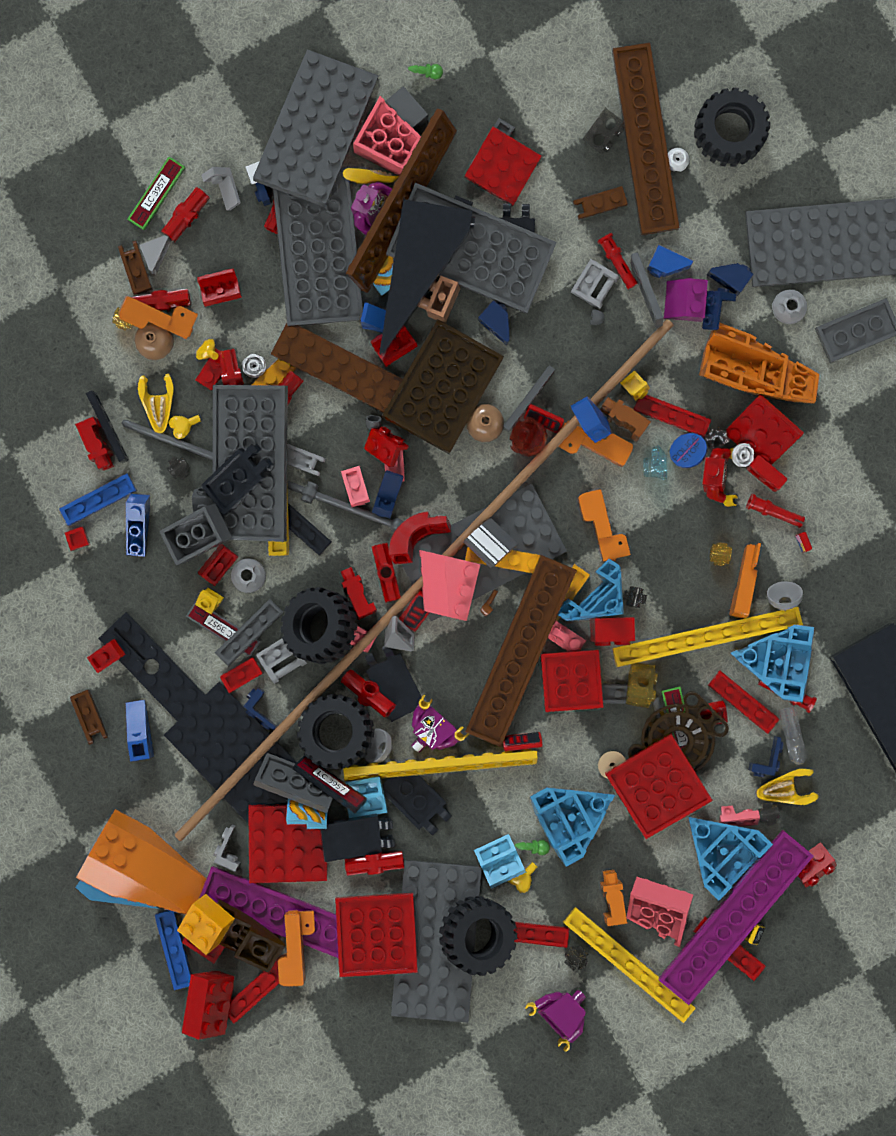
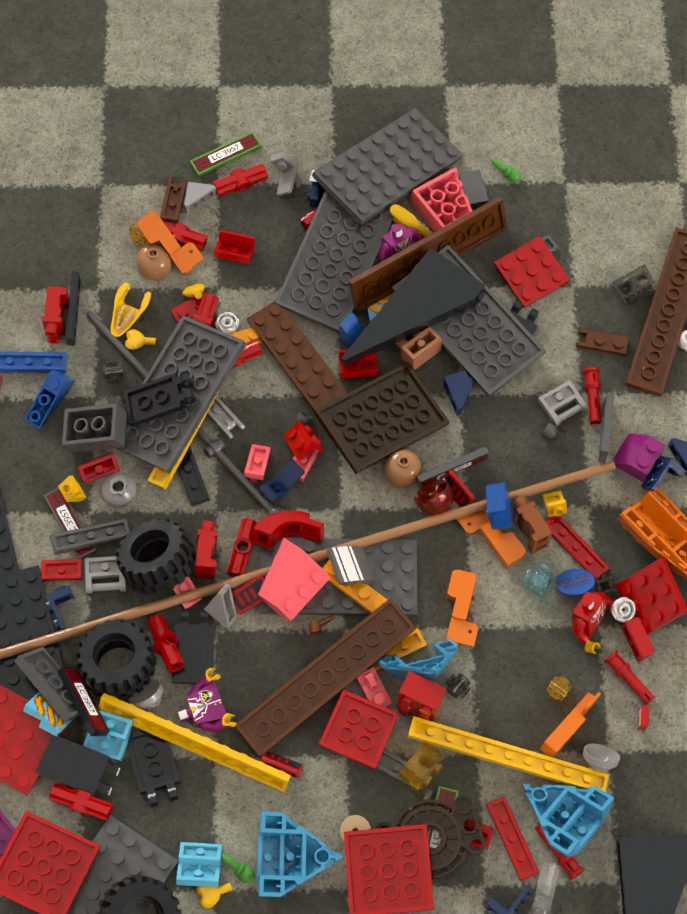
camera: 20 degrees right, 20 degrees down
(667, 263) = (637, 417): blue slope -> none

